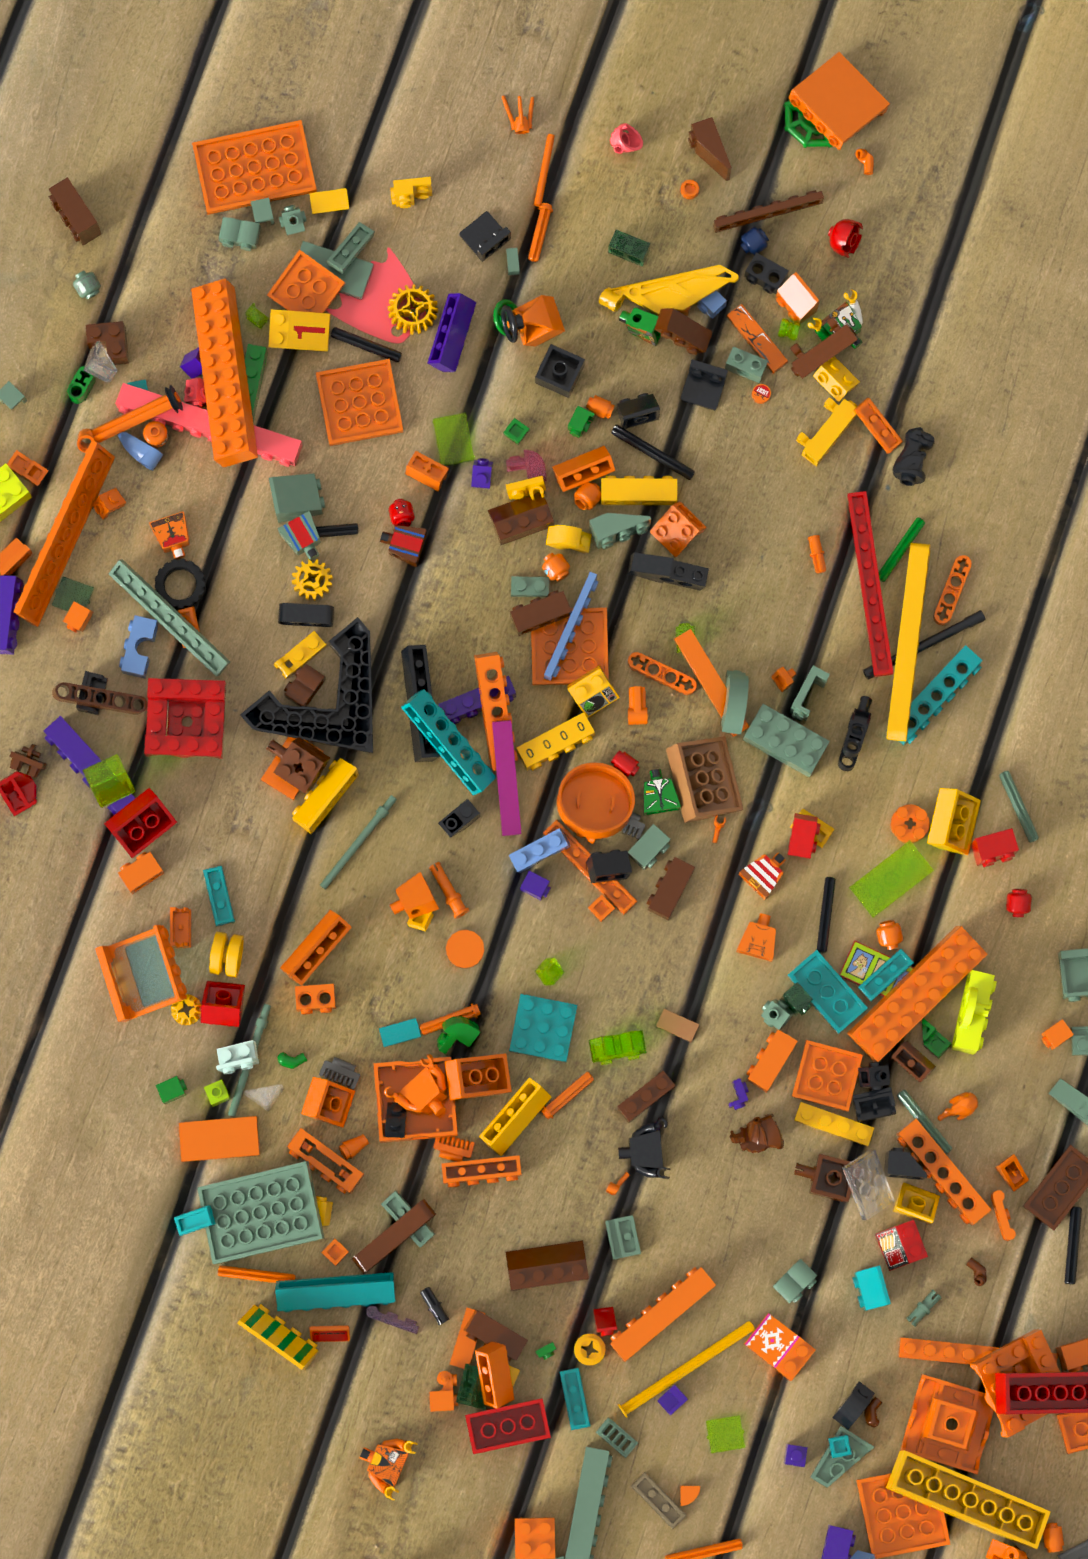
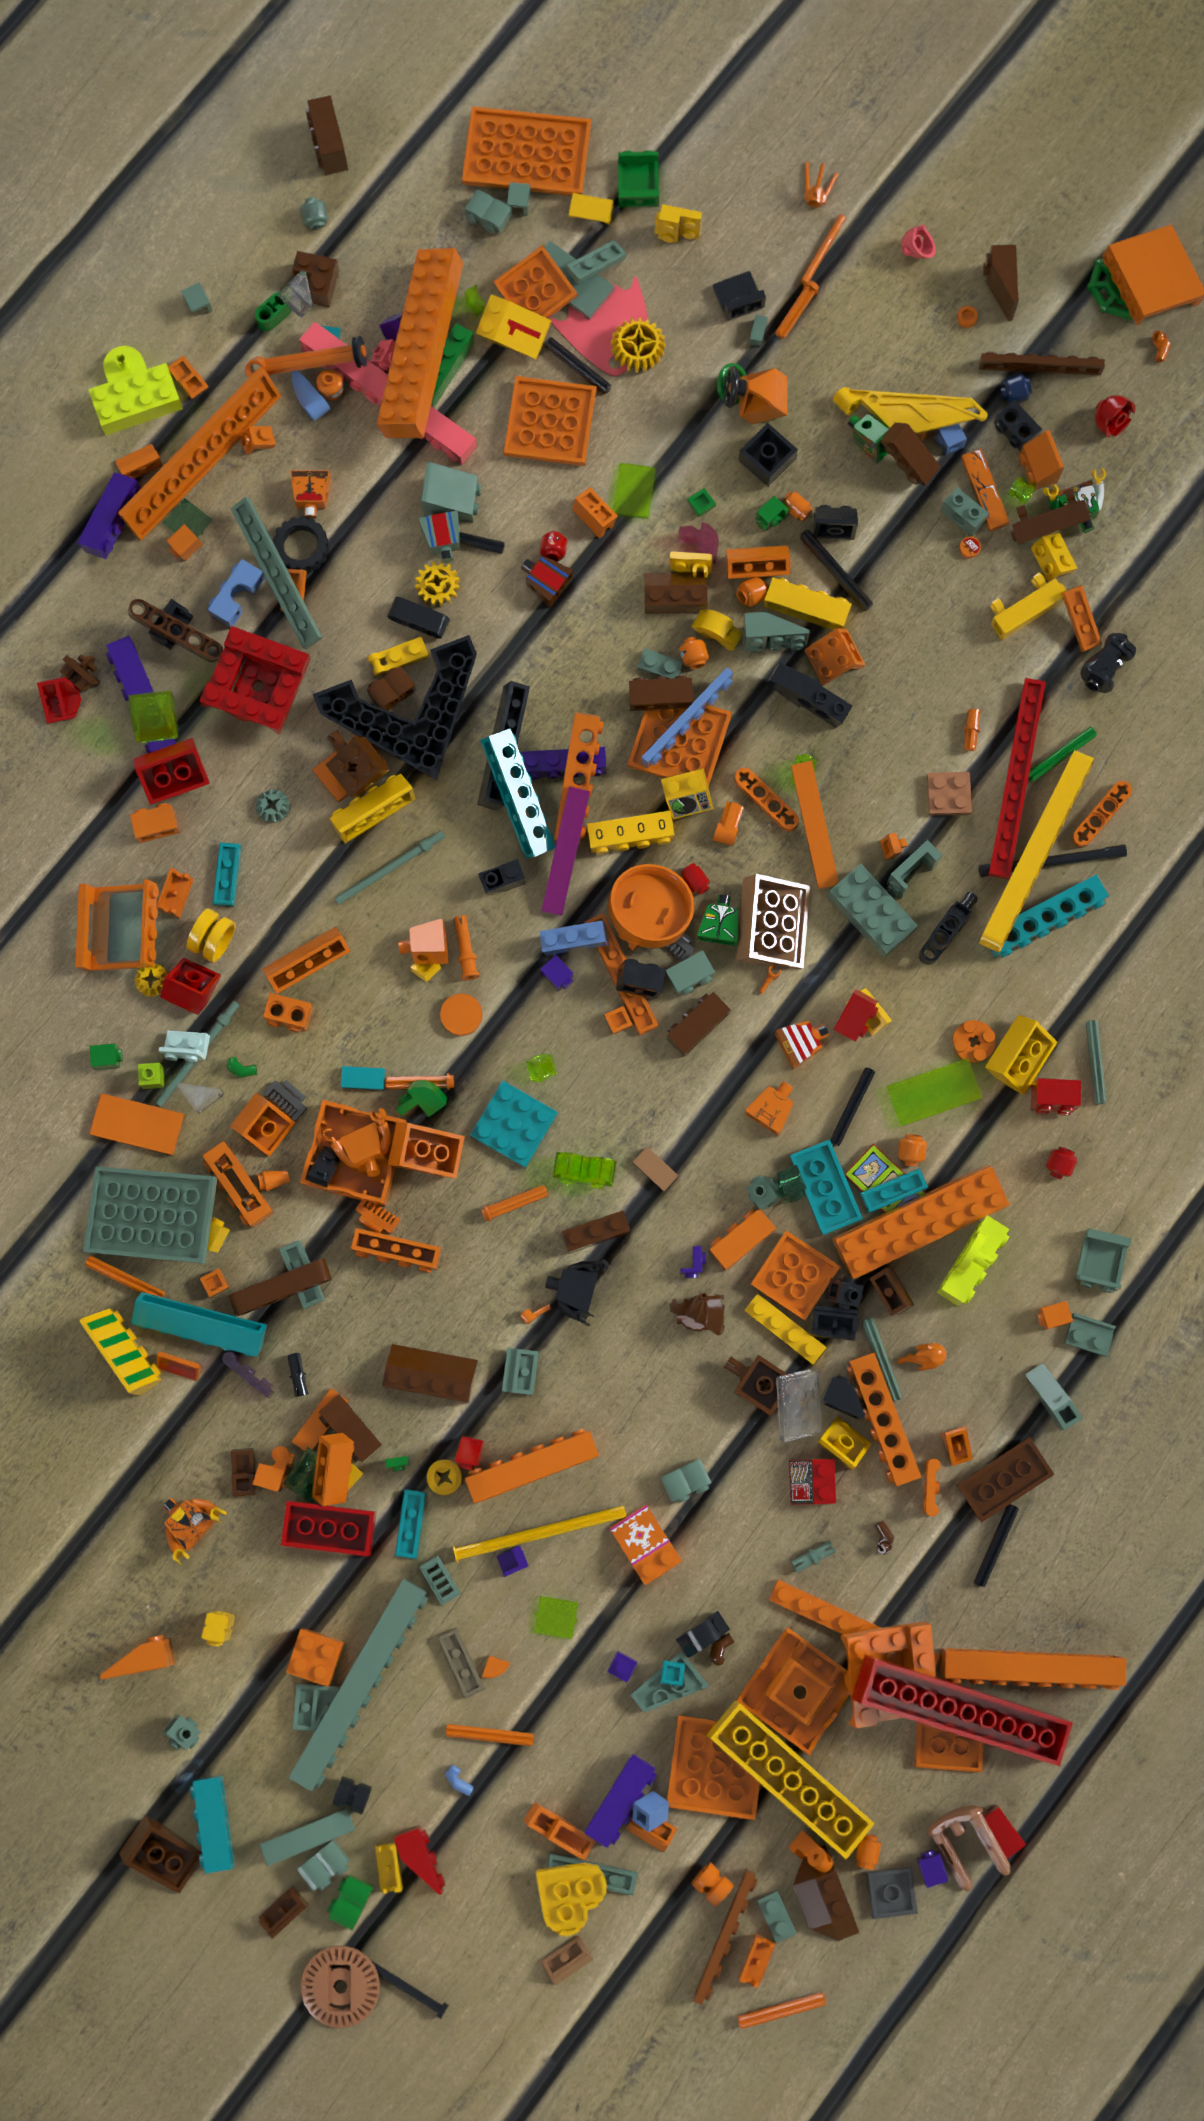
camera: 20 degrees right, 0 degrees up
(194, 1220) = (80, 1200): teal tile -> none
(238, 831) = (271, 815): none -> sand green gear
(292, 226) = (551, 221): sand green brick -> none
(361, 160) = (638, 179): none -> green panel
(417, 1404) = (243, 1472): none -> reddish brown slope
(444, 1542) = (218, 1627): none -> yellow brick
(452, 332) = (670, 380): dark purple brick -> none
(481, 473) = (650, 533): dark purple bracket -> none
(515, 1116) = (451, 1205): yellow brick -> none
(629, 247) = (883, 354): clear green brick -> none
(704, 385) = (913, 517): black bracket -> none
(736, 702) = (832, 853): sand green arch -> none
(816, 615) = (949, 793): none -> nougat plate
(871, 1288) = (764, 1516): slope -> none
(934, 1040) = (921, 1277): green slope -> none

